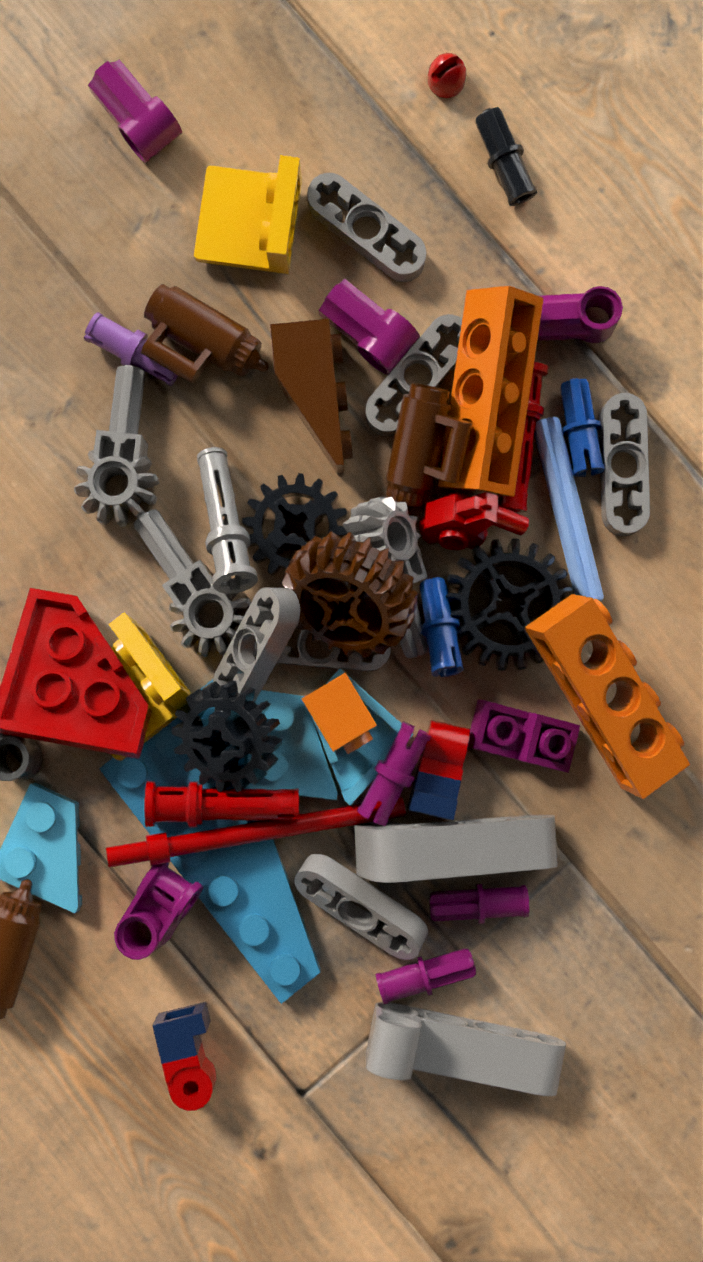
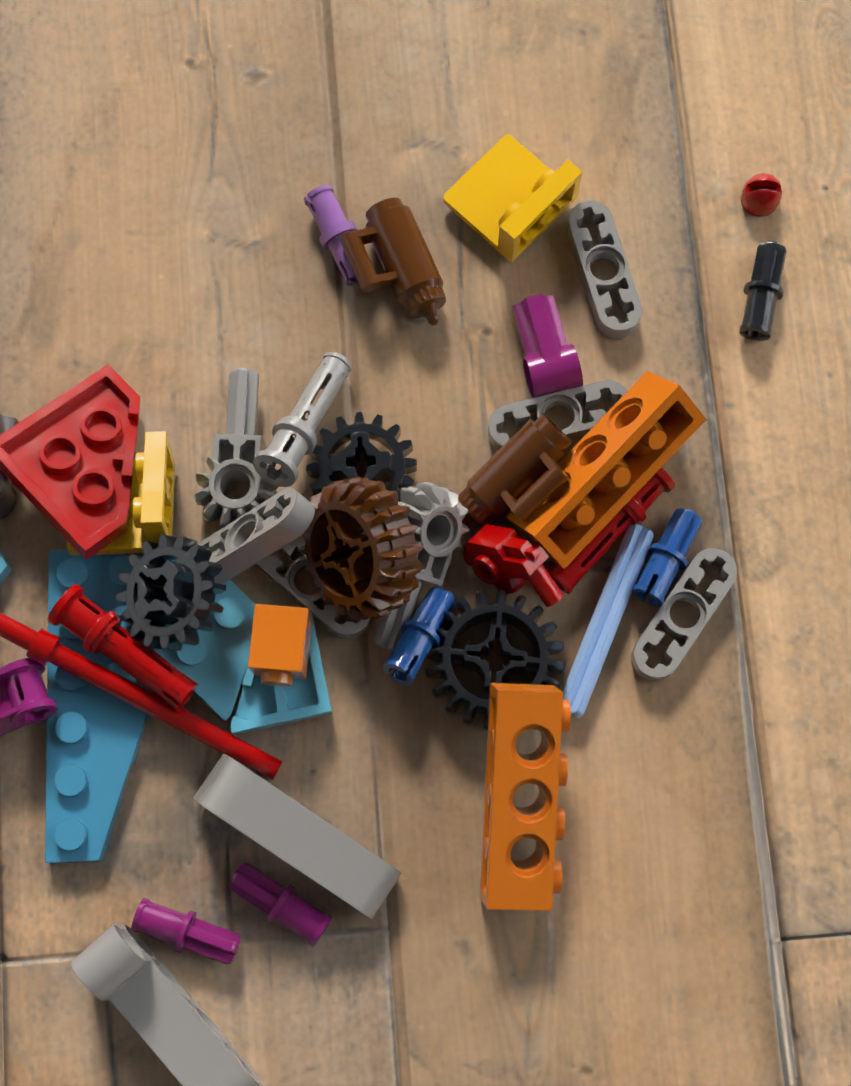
camera: 35 degrees right, 10 degrees down
(119, 453) = (262, 307): light grey gear -> none
(141, 119) = (480, 59): magenta piece -> none
(305, 374) = (466, 348): reddish brown slope -> none
(387, 923) = (185, 860): light grey beam -> none
(394, 773) = (288, 729): magenta pin -> none
(440, 771) = (331, 759): leg -> none
(523, 735) = (426, 784): magenta slope -> none
(565, 315) = (720, 452): magenta piece -> none

